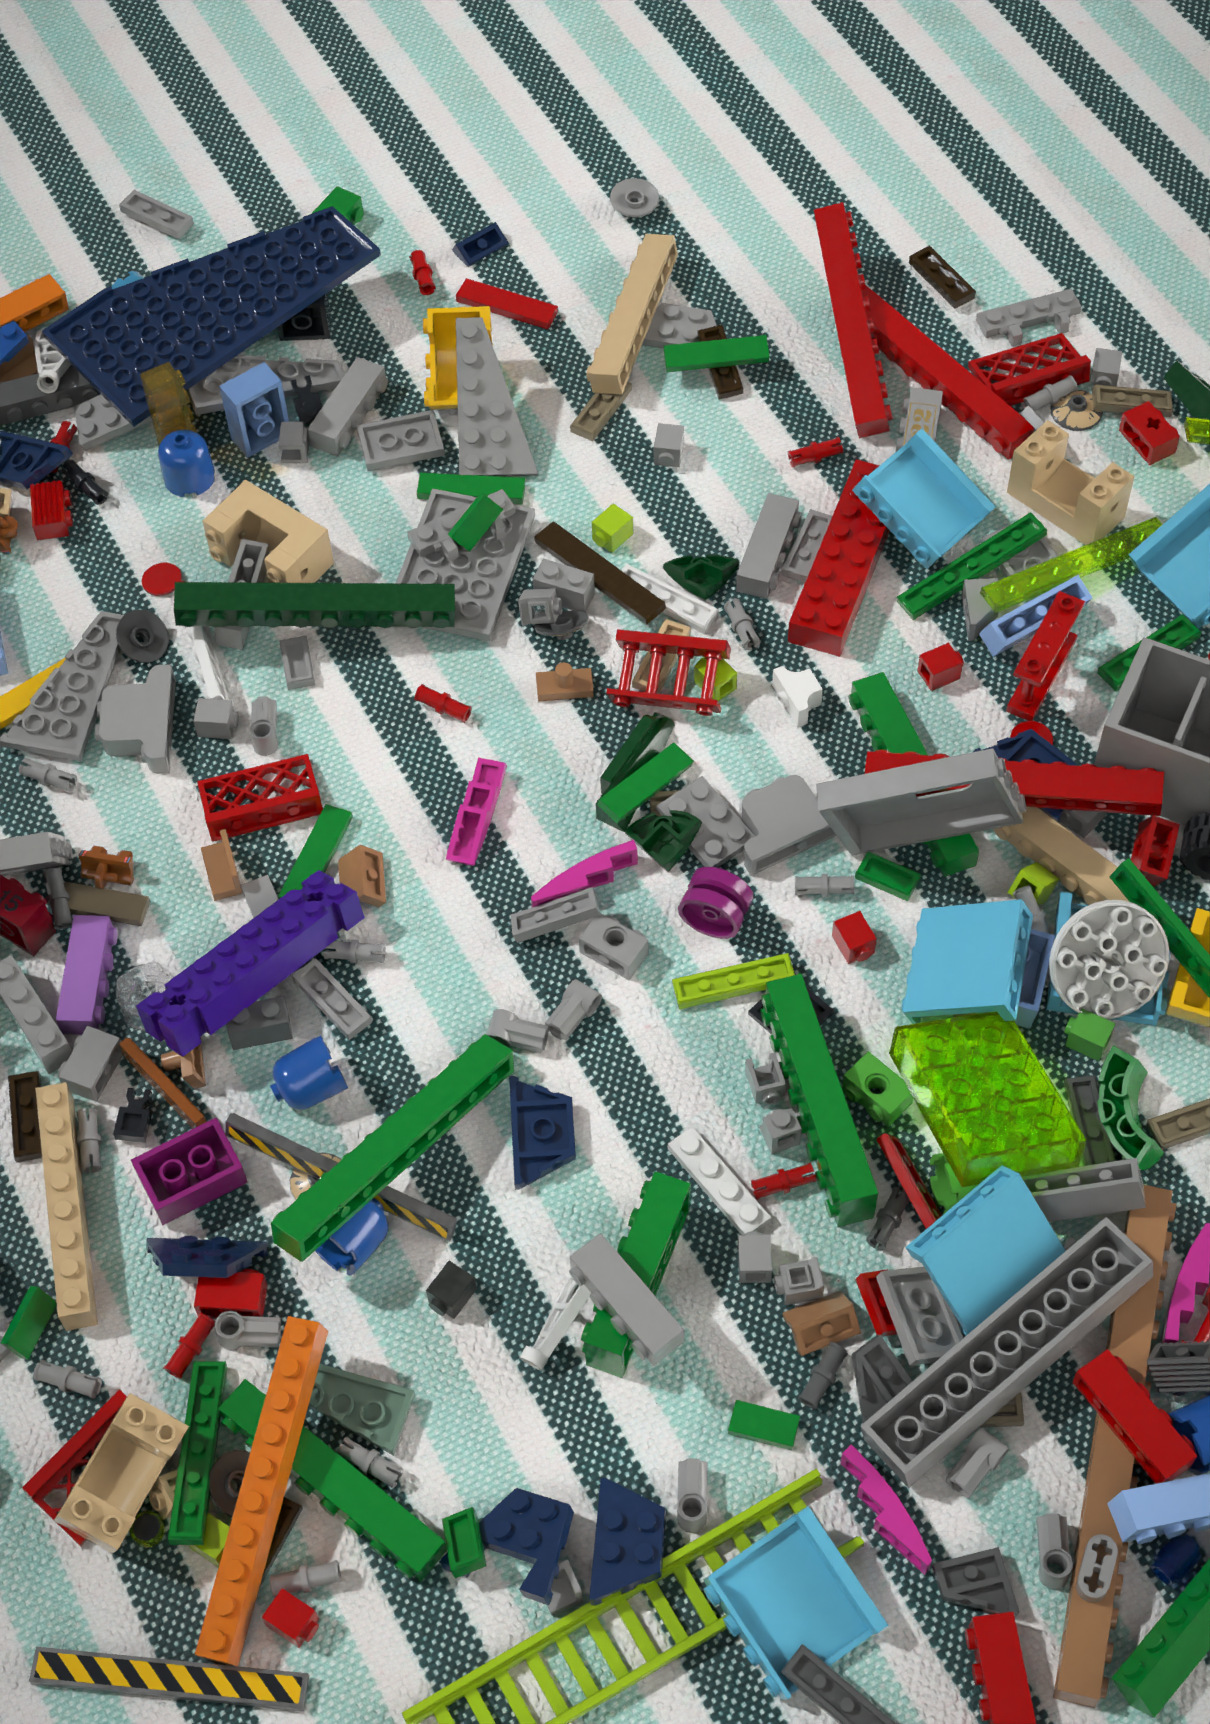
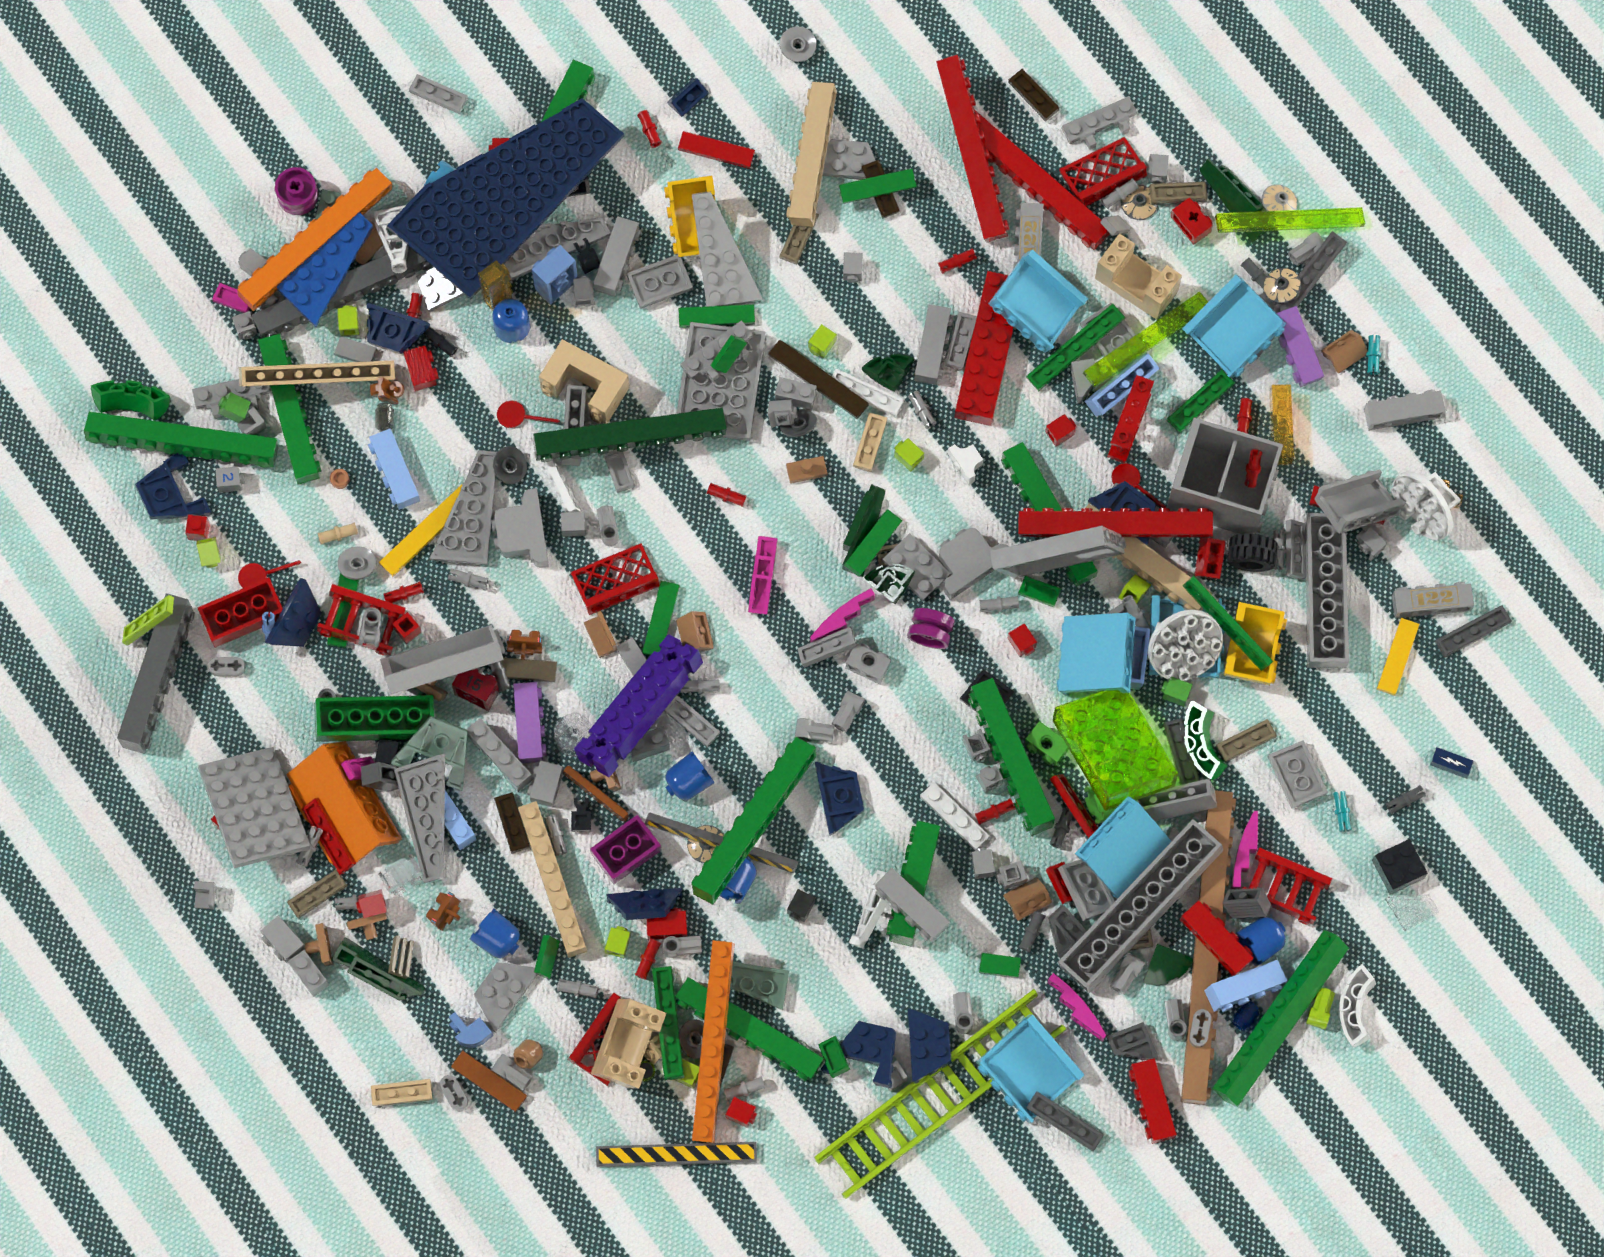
camera: 10 degrees left, 15 degrees up
(147, 1313) = (617, 942): none -> lime brick
(370, 1462) = (769, 1016): light grey pin -> none
(659, 644) = (869, 442): red fence -> none
(730, 981) = (948, 679): lime tile -> none
(1044, 1458) = (1166, 966): none -> dark green brick

